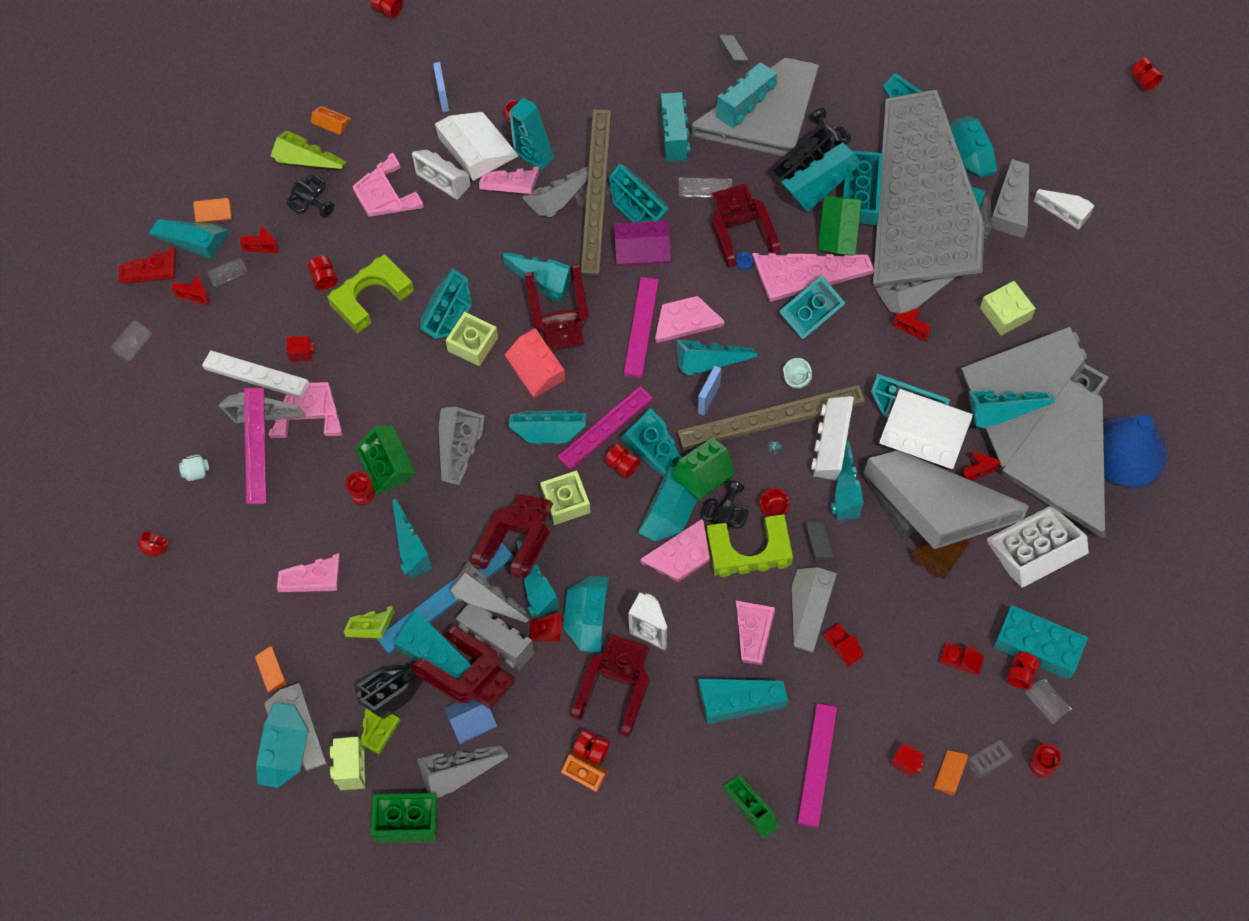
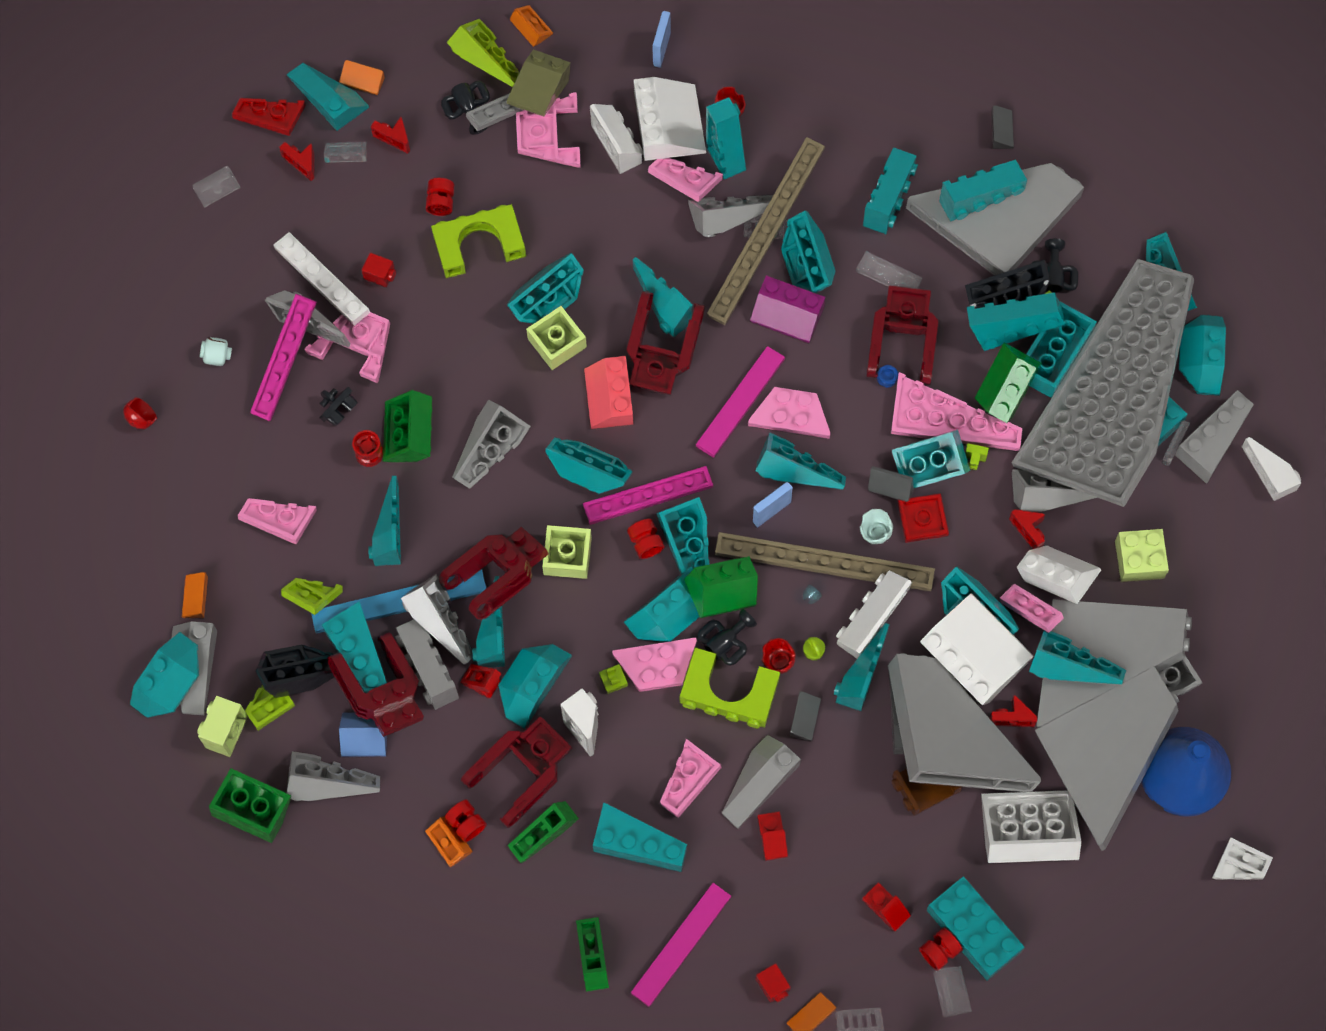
camera: 25 degrees right, 5 degrees up
(321, 459) = (332, 413): none -> black hips
(341, 185) = (491, 113): none -> light grey tile
(360, 155) = (539, 83): none -> olive slope
(652, 580) = (613, 678): none -> lime tile
(659, 726) = (543, 830): none -> green slope
(791, 337) = (890, 484): none -> dark grey slope
(798, 486) = (814, 648): none -> lime tile
(828, 353) = (923, 518): none -> red tile
(844, 288) = (976, 454): none -> lime tile
(949, 381) = (1031, 608): none -> bright pink plate
(954, 347) = (1057, 573): none -> white slope
(1208, 500) = (1242, 862): none -> white wing

